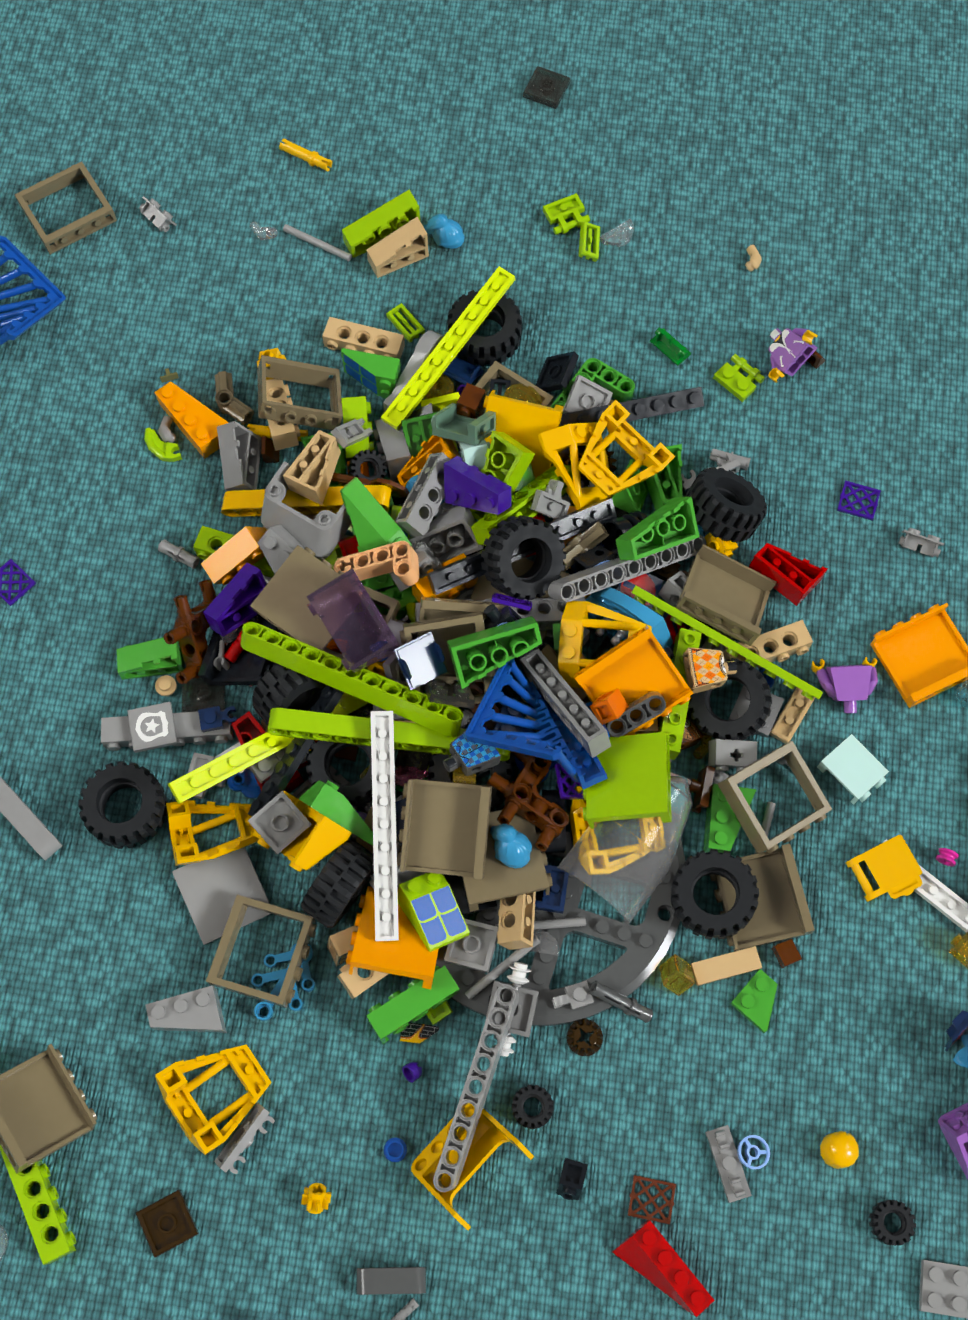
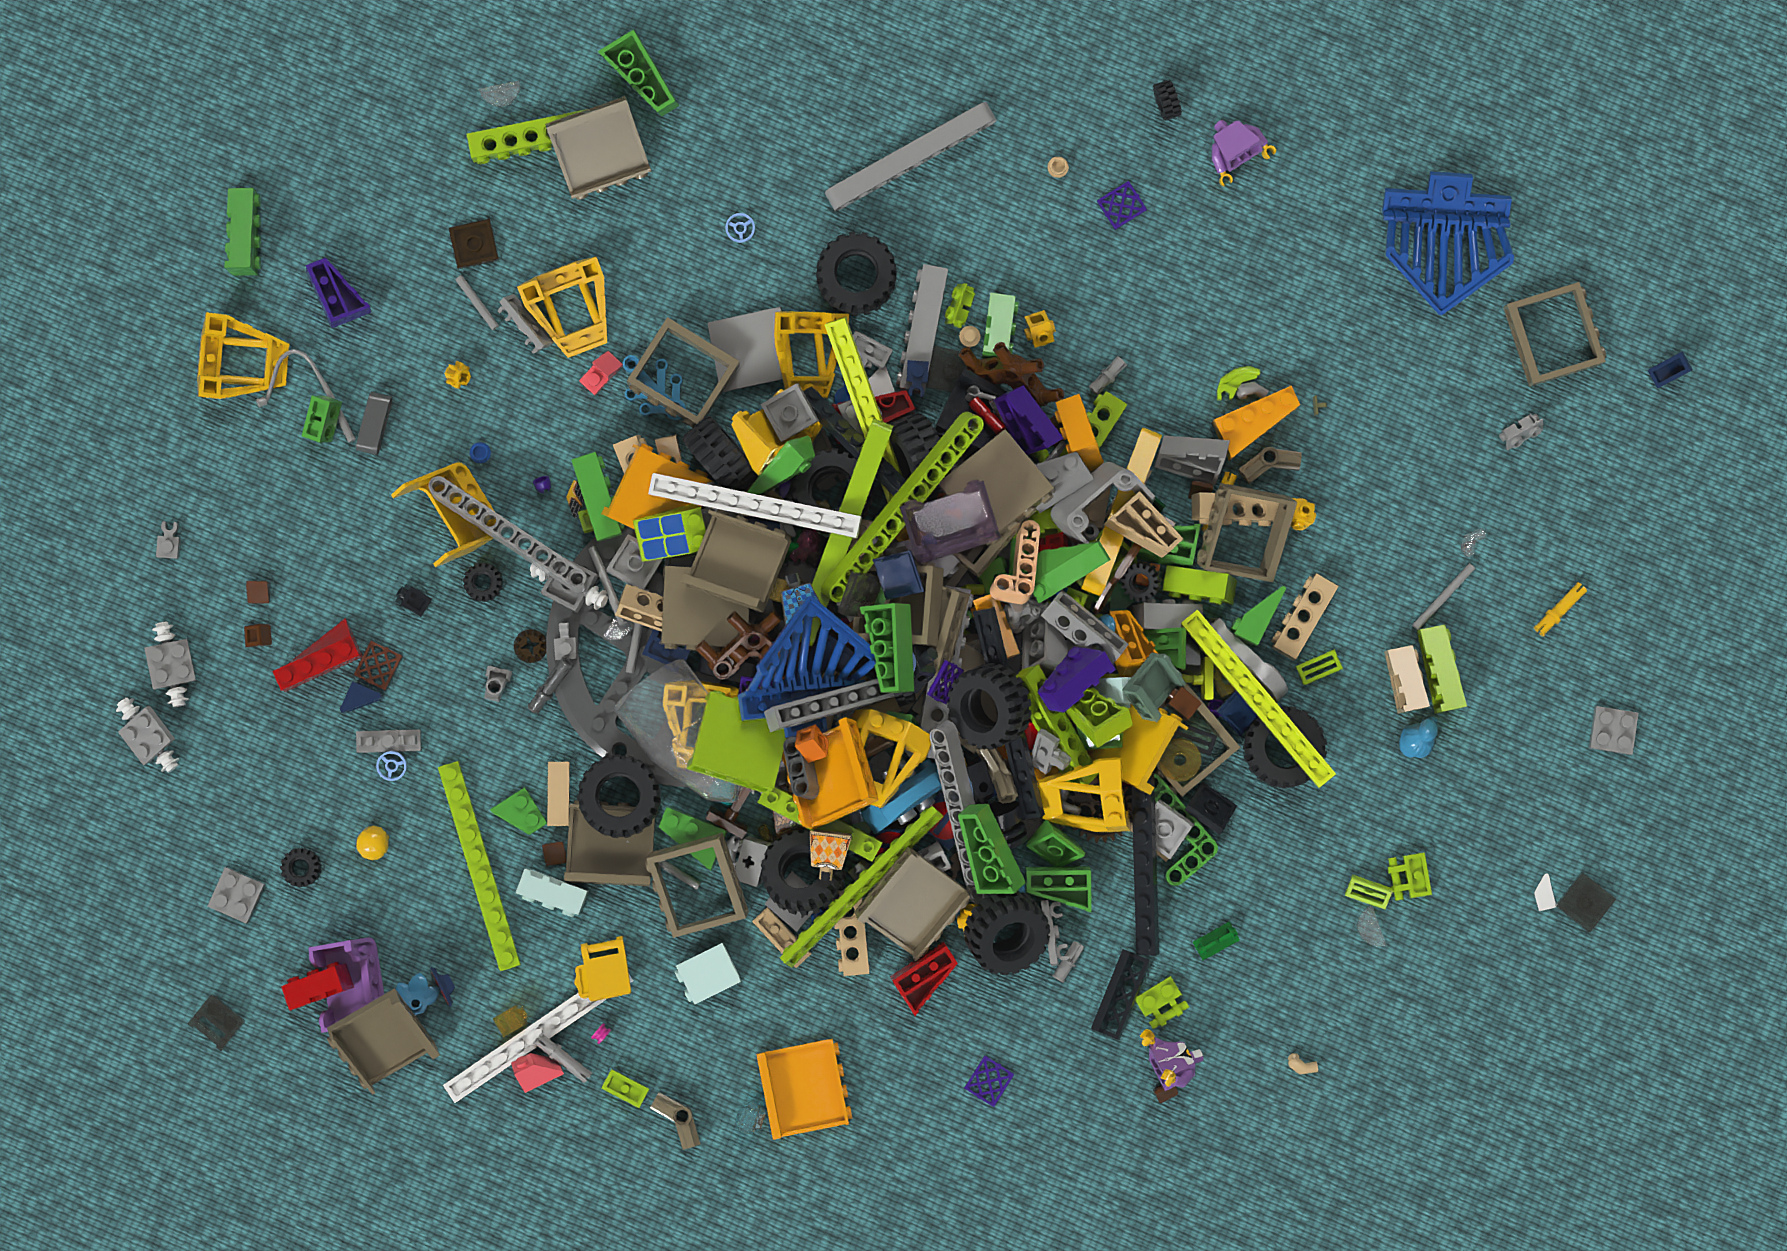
camera: 100 degrees right, 15 degrees up
(78, 116) = (1670, 370): none -> dark blue slope
(93, 934) = (737, 224): none -> light blue piece
(128, 701) = (961, 296): none -> lime hinge
(145, 621) = (1039, 329): none -> yellow brick
(152, 727) = (924, 315): light grey tile -> none
(190, 1011) = (646, 298): light grey wedge -> none
(231, 1201) = (477, 302): none -> light grey bar
(280, 1041) = (601, 372): none -> coral slope
(351, 432) = (1178, 572): light grey hinge -> none
(397, 99) = (1613, 730): none -> light grey plate
(511, 846) = (708, 618): dark azure hair -> none
(549, 119) = (1544, 894): none -> white sticker
(629, 1062) = (498, 679): none -> light grey plate
(632, 442) = (1097, 858): yellow windscreen -> none
(677, 975) = (562, 745): clear yellow panel -> none
(691, 1207) = (358, 697): none -> dark blue slope
(747, 415) = (1114, 990): none -> black fence
(823, 1029) = (479, 866): none -> lime plate
(828, 943) = (552, 892): none -> light aqua wedge
(847, 682) = (795, 998): medium lavender torso -> none
(929, 544) = (931, 1120): light grey hinge -> none

